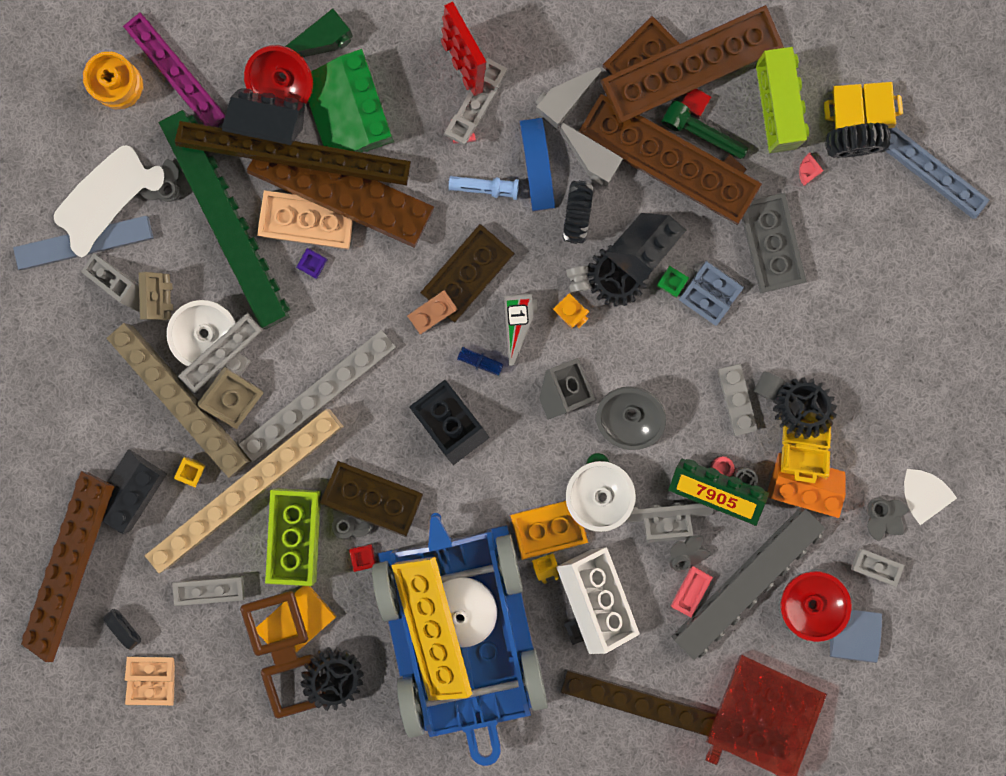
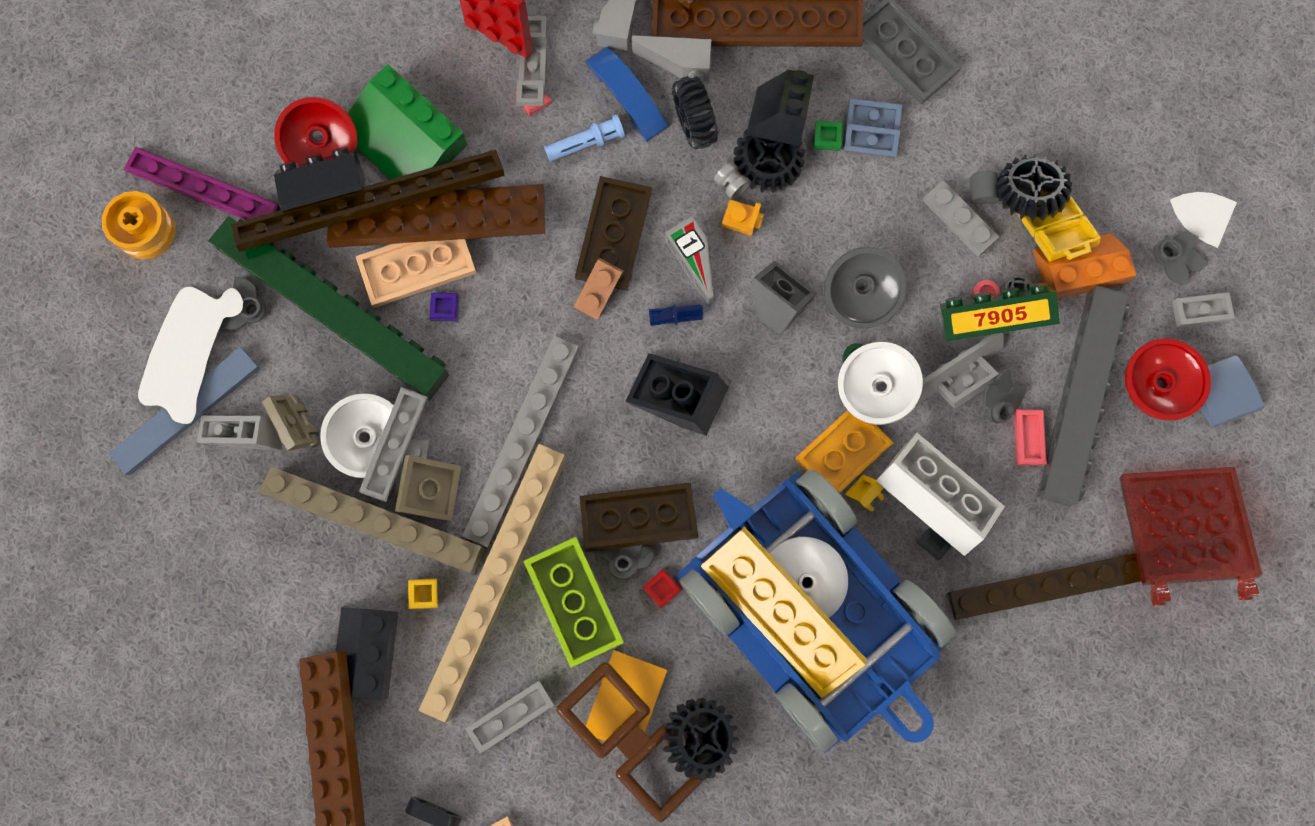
camera: 30 degrees left, 10 degrees down
(322, 36) = (342, 73): dark green slope -> none

